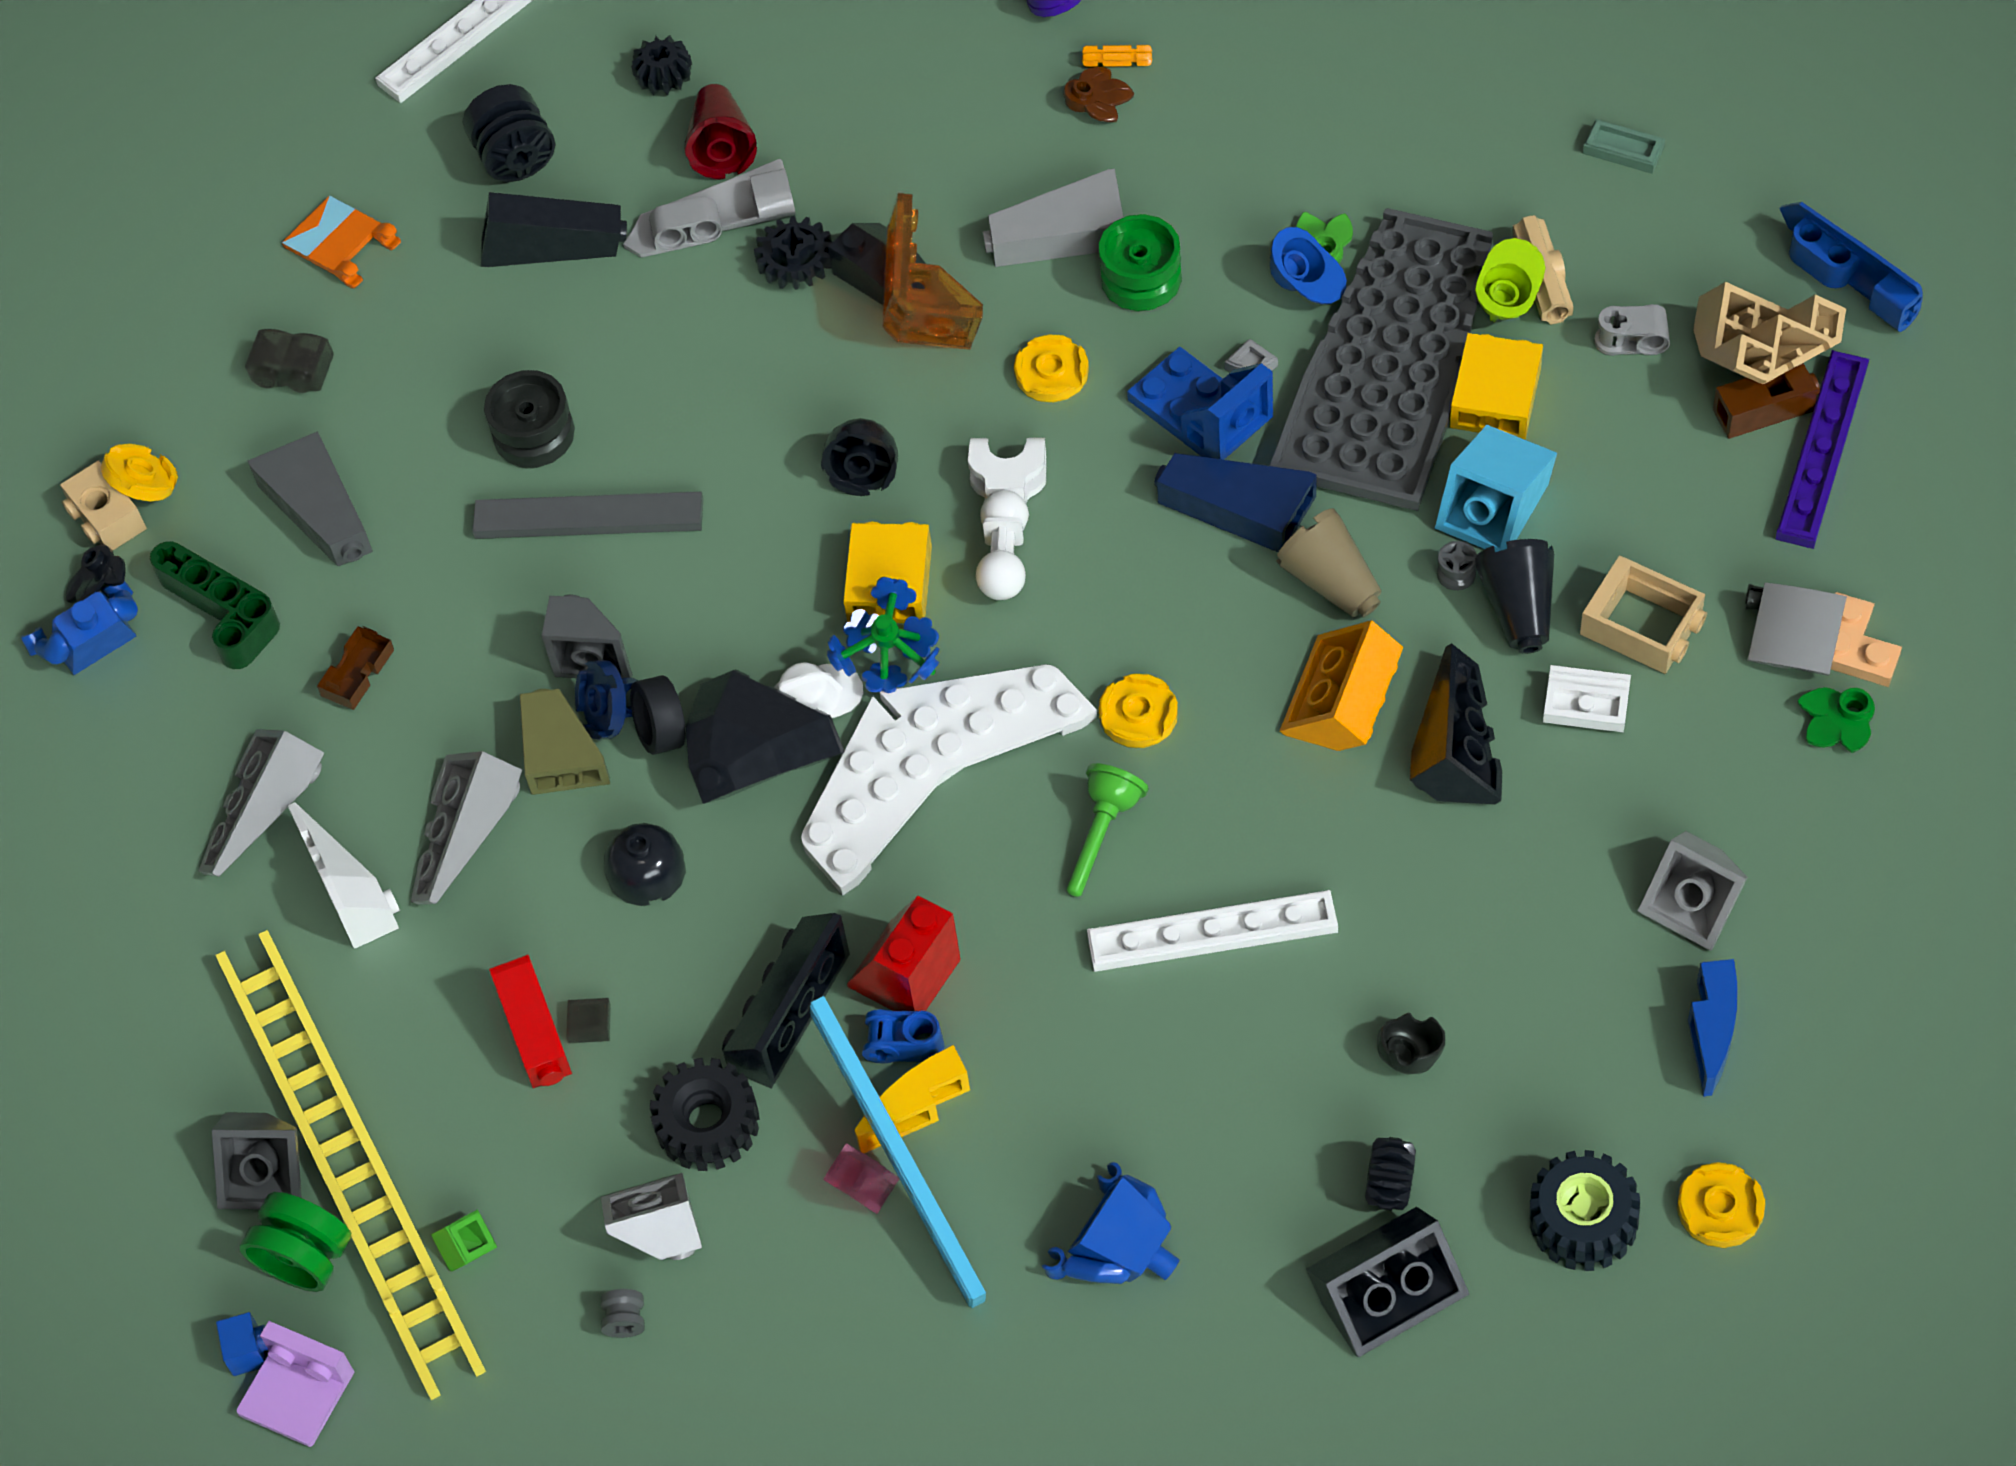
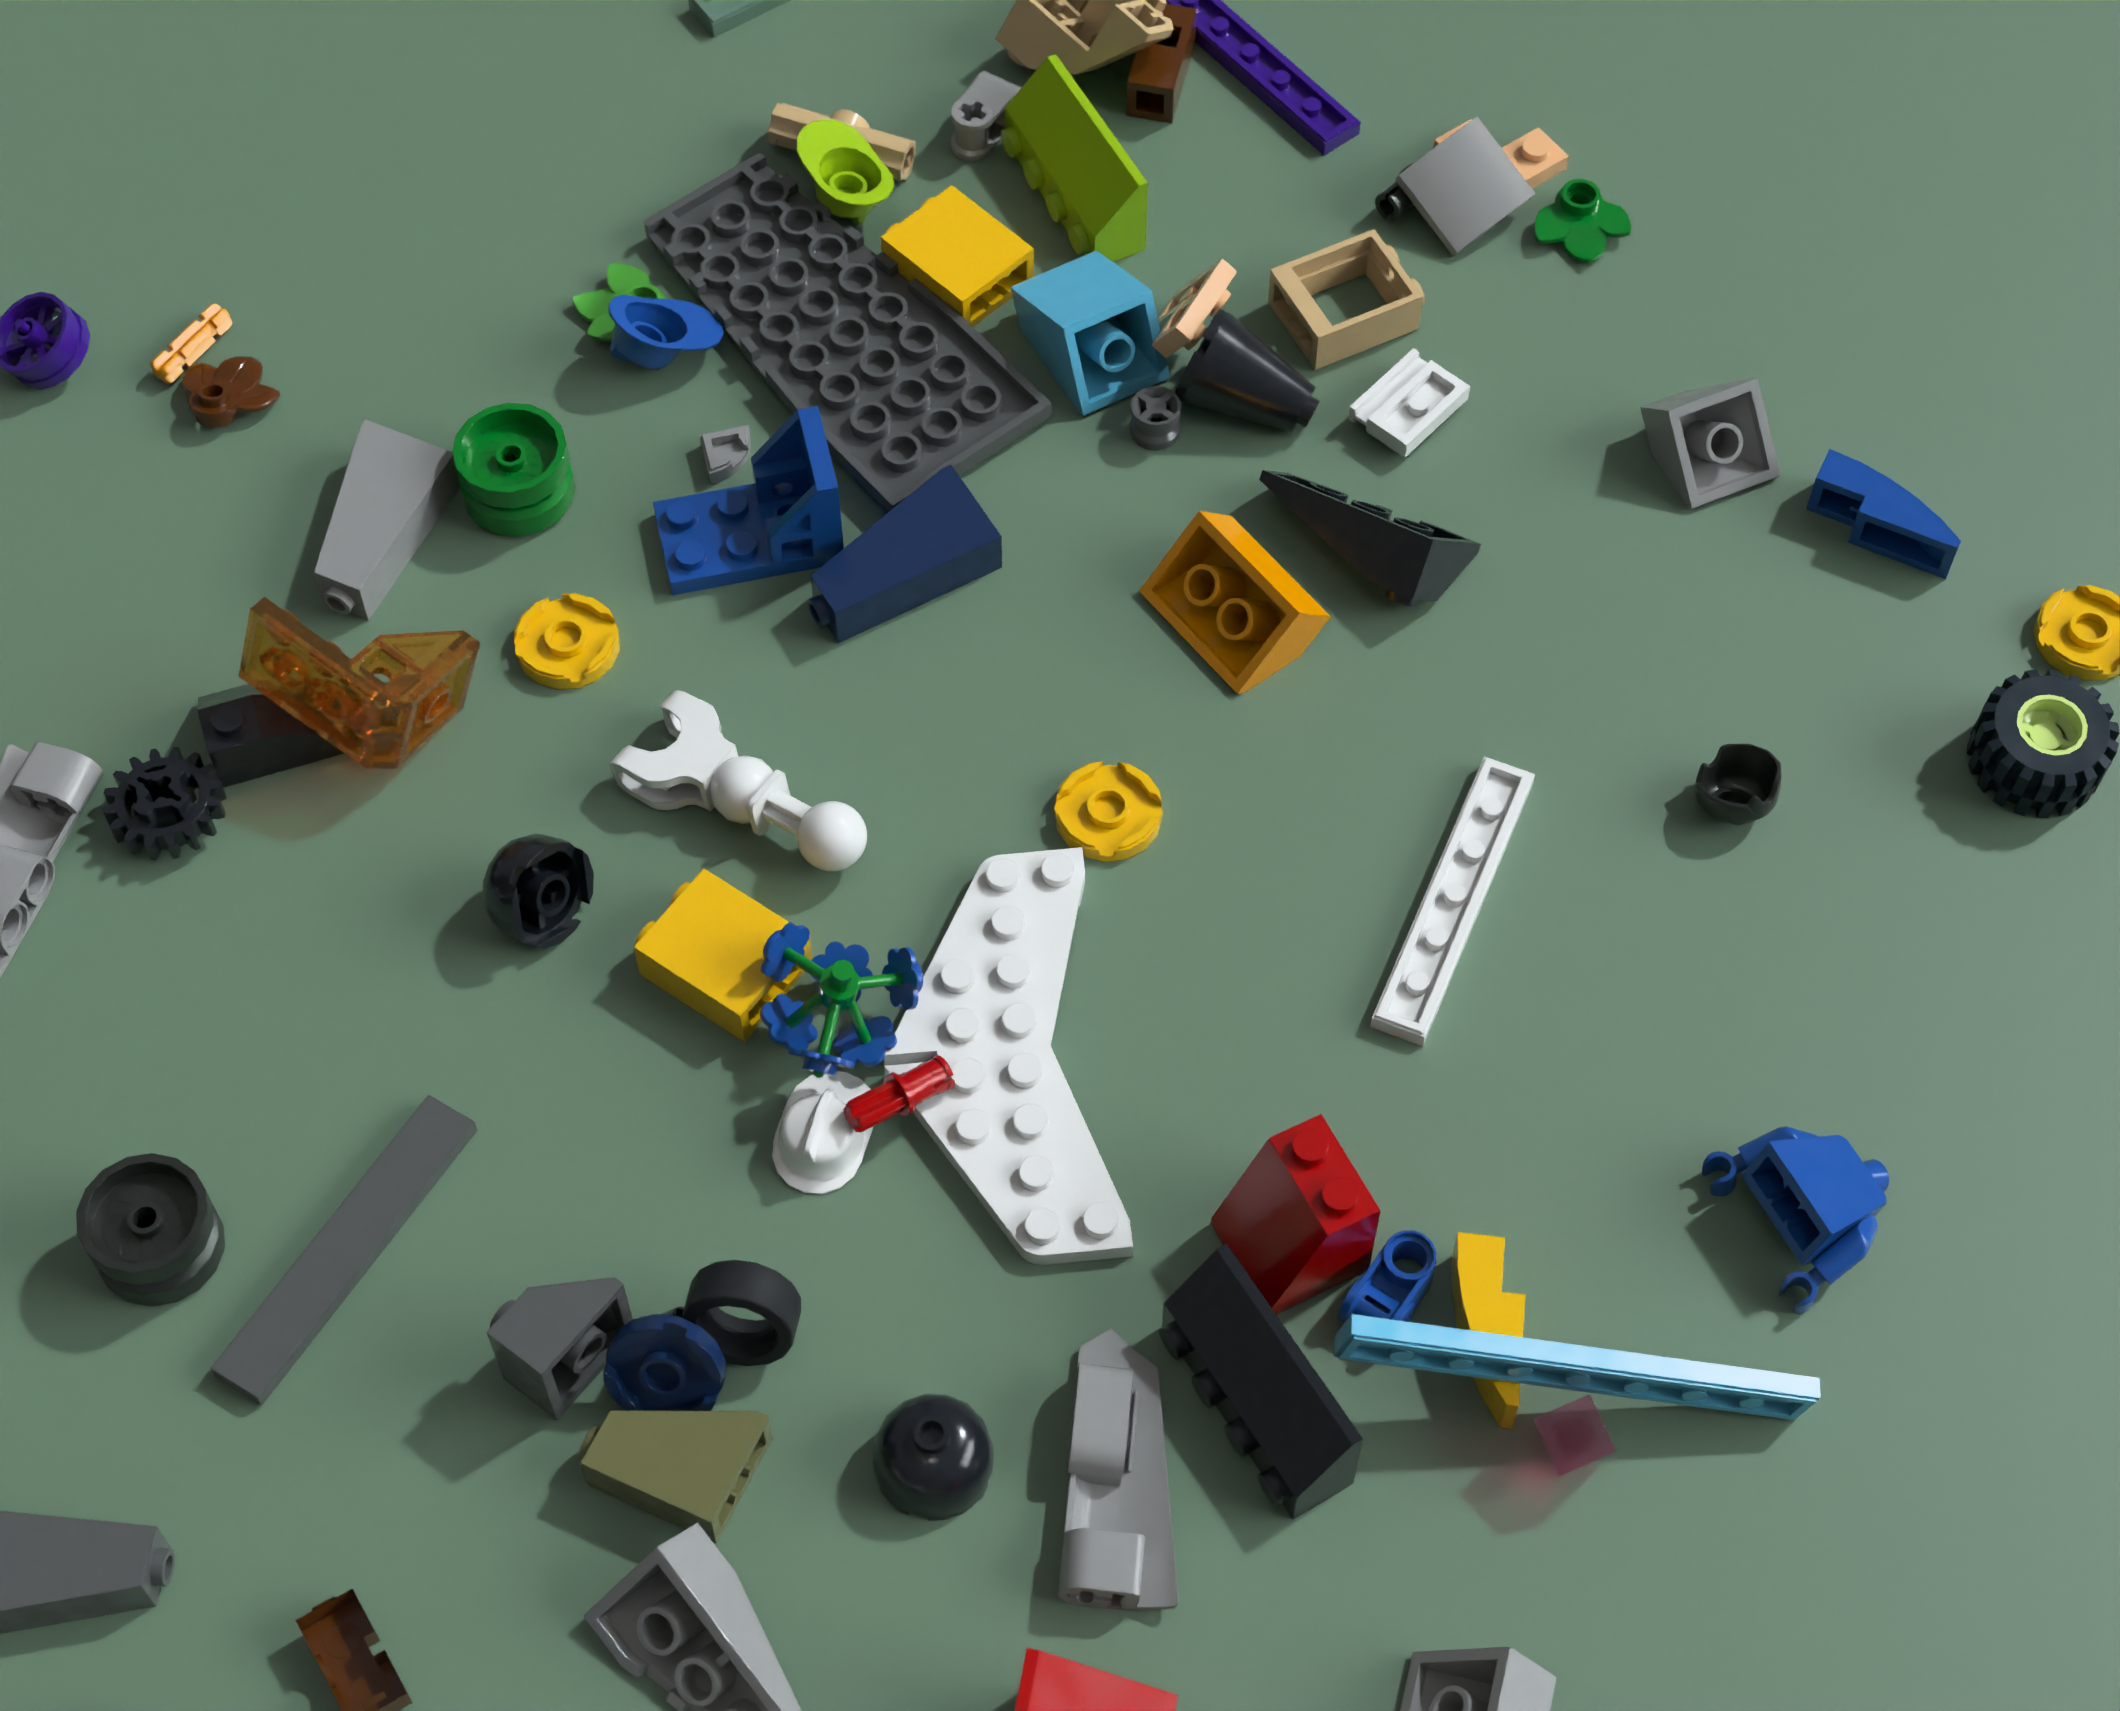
camera: 65 degrees left, 0 degrees up
(588, 1020) = (1116, 1644): clear smoke tile -> none
(691, 962) = (1118, 1492): none -> light grey panel
(699, 1087) = (1364, 1531): black tyre -> none
(752, 734) = (854, 1221): black brick -> none
(848, 709) = (899, 1094): none -> red axle
(1112, 792) = (1217, 887): bright green piece -> none
(1331, 564) = (1074, 518): dark tan cone -> none
(1388, 1280) = (2016, 969): black slope -> none
(1390, 1173) = (1897, 890): black gear -> none
(1554, 530) = (1188, 308): none -> light nougat plate
(1620, 404) = (1076, 164): none -> lime slope

